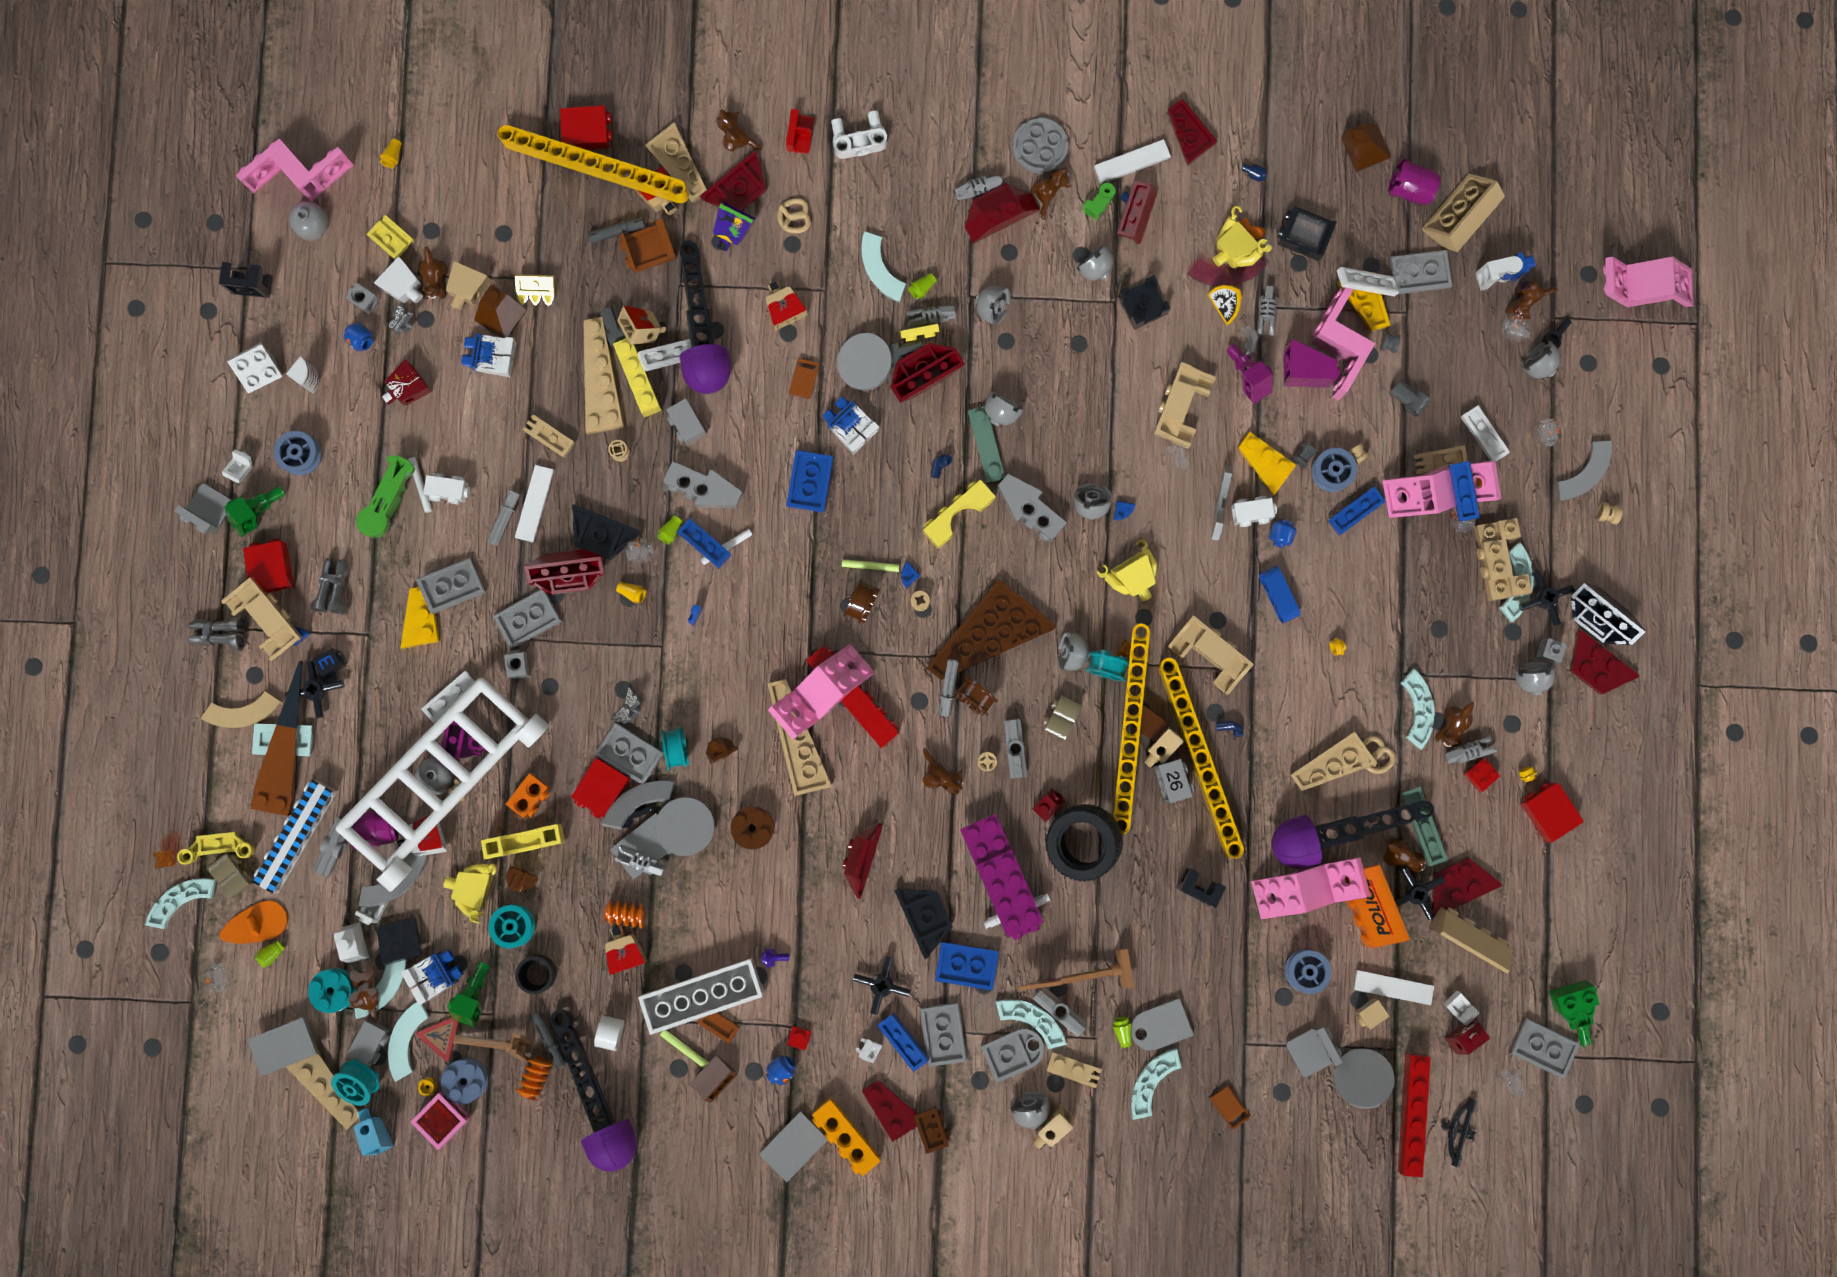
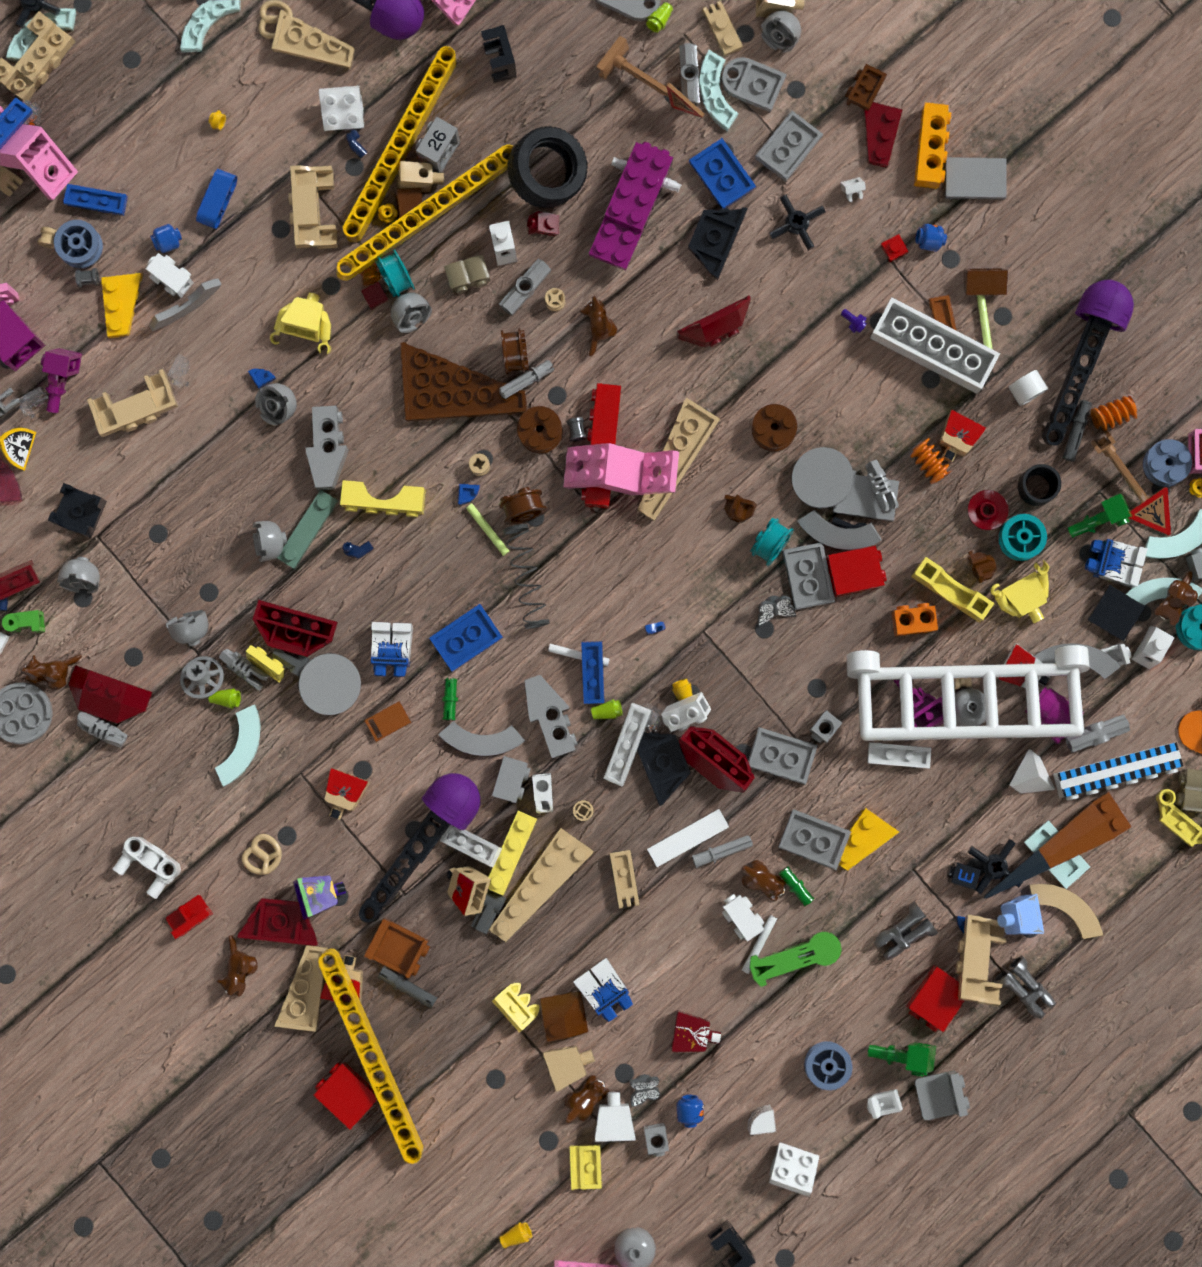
camera: 135 degrees left, 0 degrees up
(264, 674) = (1021, 916): none -> light blue torso
(349, 774) = (1031, 775): none -> white slope
(432, 544) = (796, 886): none -> green pin
(458, 526) = (761, 879): none -> reddish brown animal
(544, 923) = (995, 503): none -> dark red dish
(615, 578) = (685, 712): none -> white brick
(633, 520) = (627, 744): none -> white tile
(657, 436) = (543, 792): none -> white leg
(729, 425) = (481, 744): none -> light grey tile
(773, 538) = (515, 529): none -> dark grey piece
(778, 432) = (450, 699): none -> green pin
(881, 690) = (576, 429): none -> dark grey bush
(903, 1042) = (823, 168): blue plate -> none
(904, 653) = (537, 418): none -> reddish brown wheel
(952, 282) = (200, 675): none -> light grey wheel
(1061, 763) = (503, 242): none -> white torso
(1108, 640) = (374, 295): none -> dark red tile
(1159, 708) = (392, 213): none -> yellow plate
(1264, 740) = (341, 108): none -> white plate

